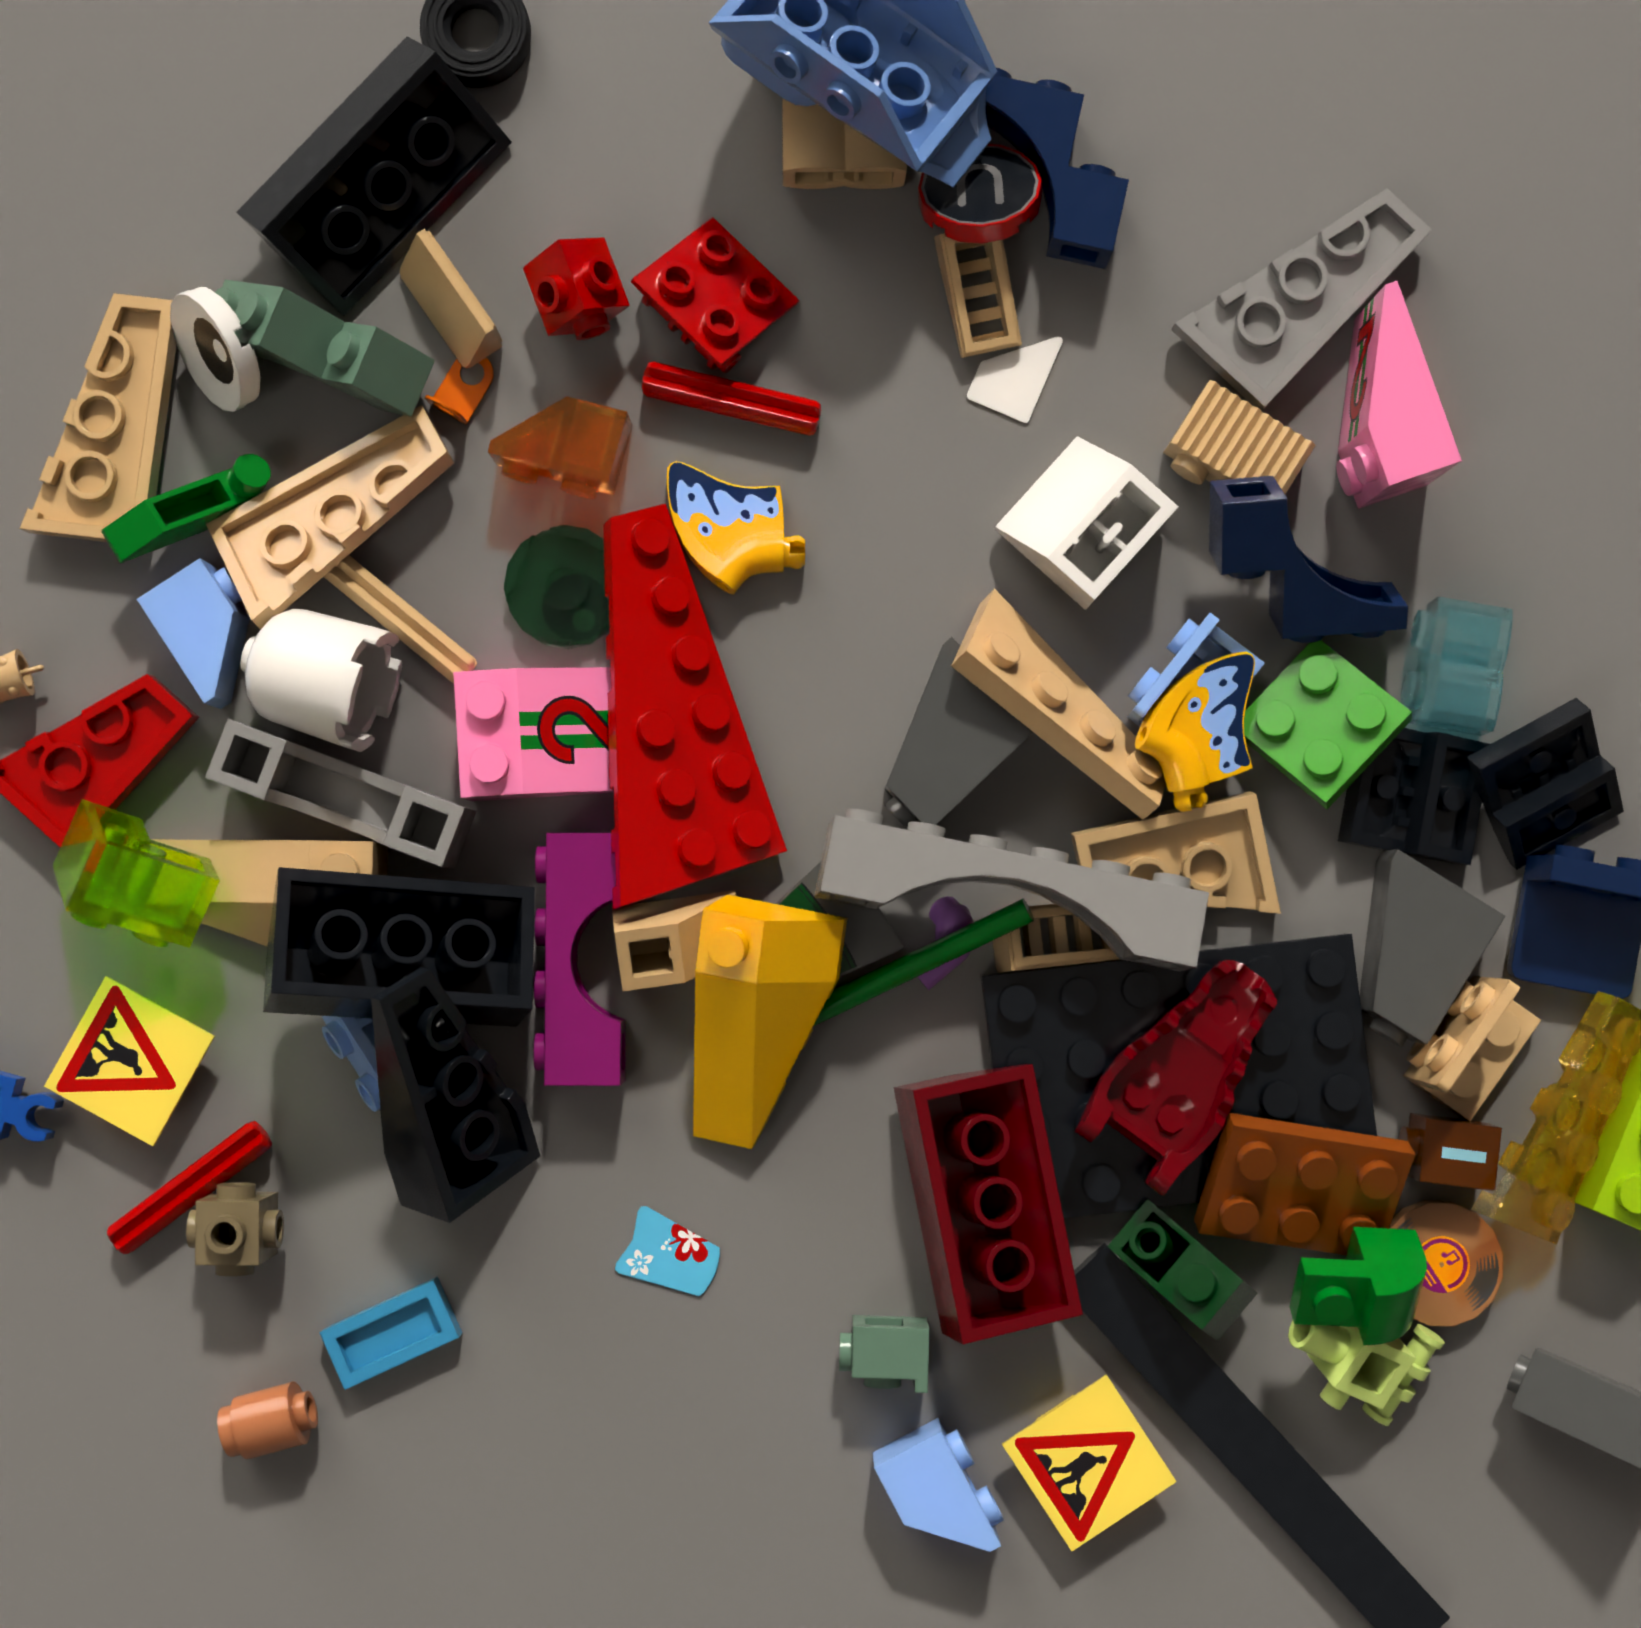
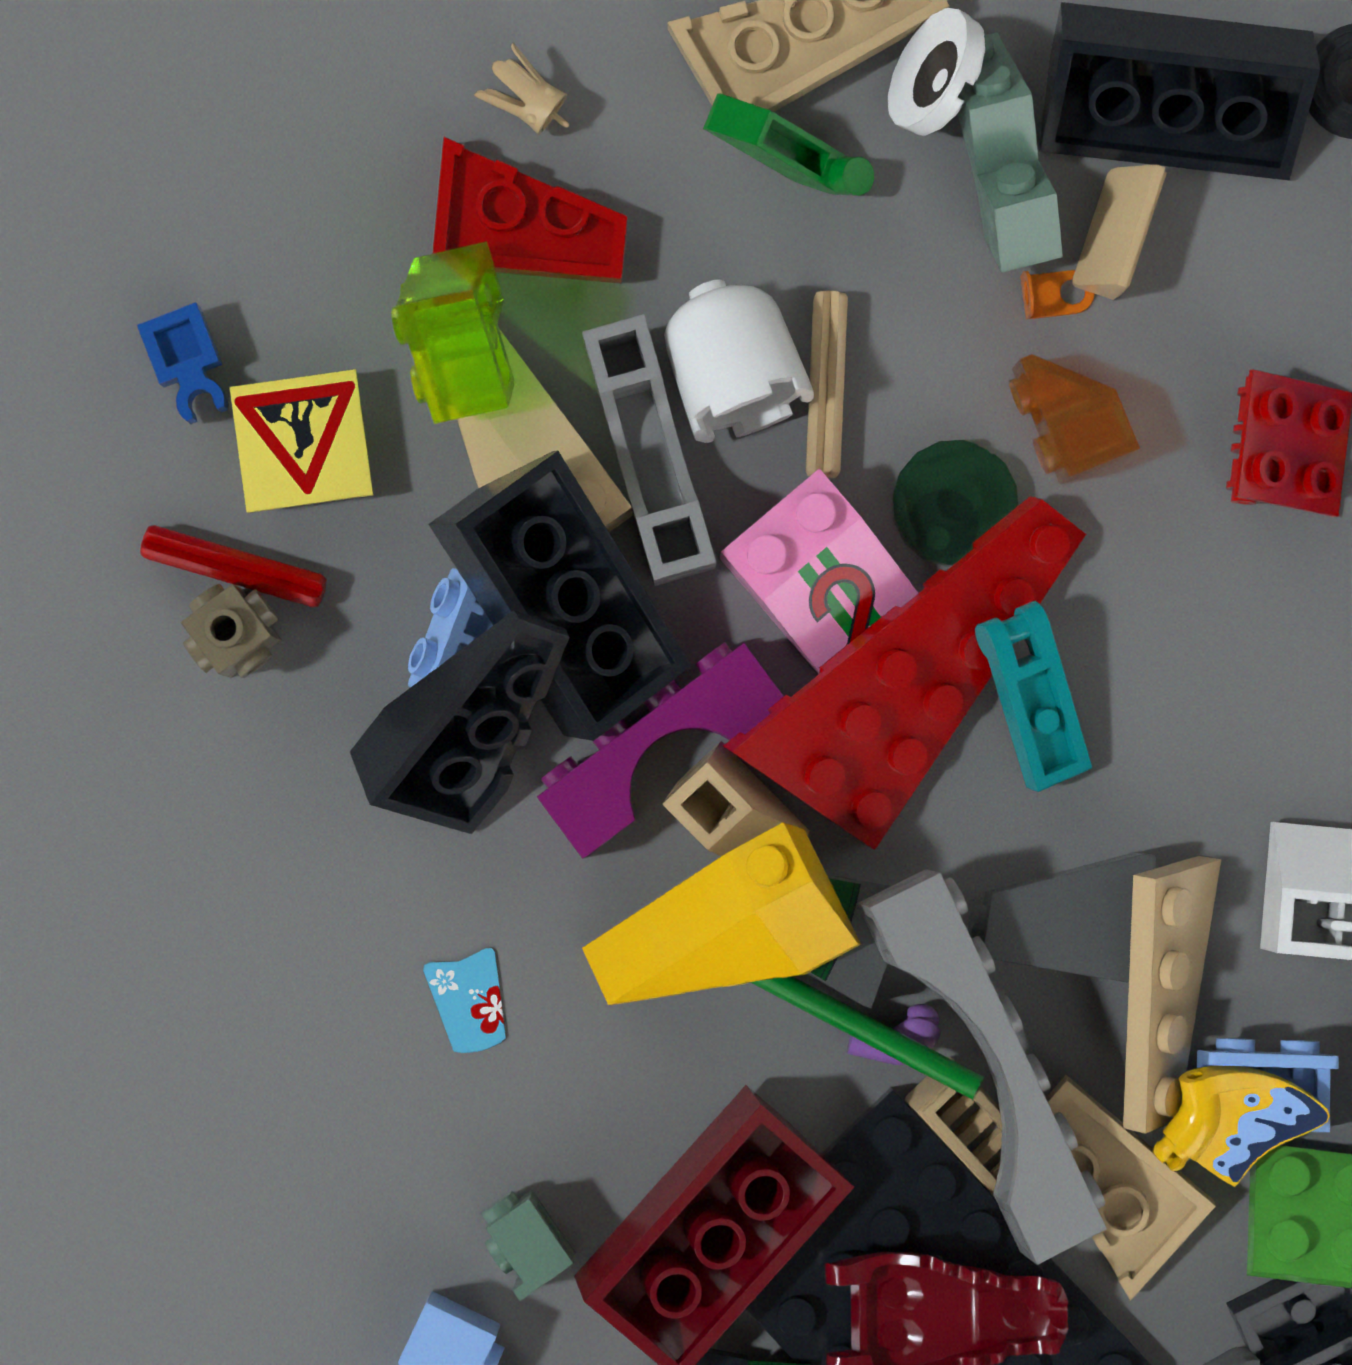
camera: 50 degrees right, 0 degrees up
(202, 627) = (699, 230): light blue slope -> none
(267, 1421) = (93, 774): nougat brick -> none
(316, 518) = (861, 259): tan wing -> none
(391, 1333) = (237, 820): dark azure tile -> none
(576, 287) = (1210, 328): red brick -> none
(730, 527) = (1106, 602): yellow arm -> none
(731, 398) = (1214, 522): red axle -> none
(760, 638) = (1035, 697): none -> teal plate

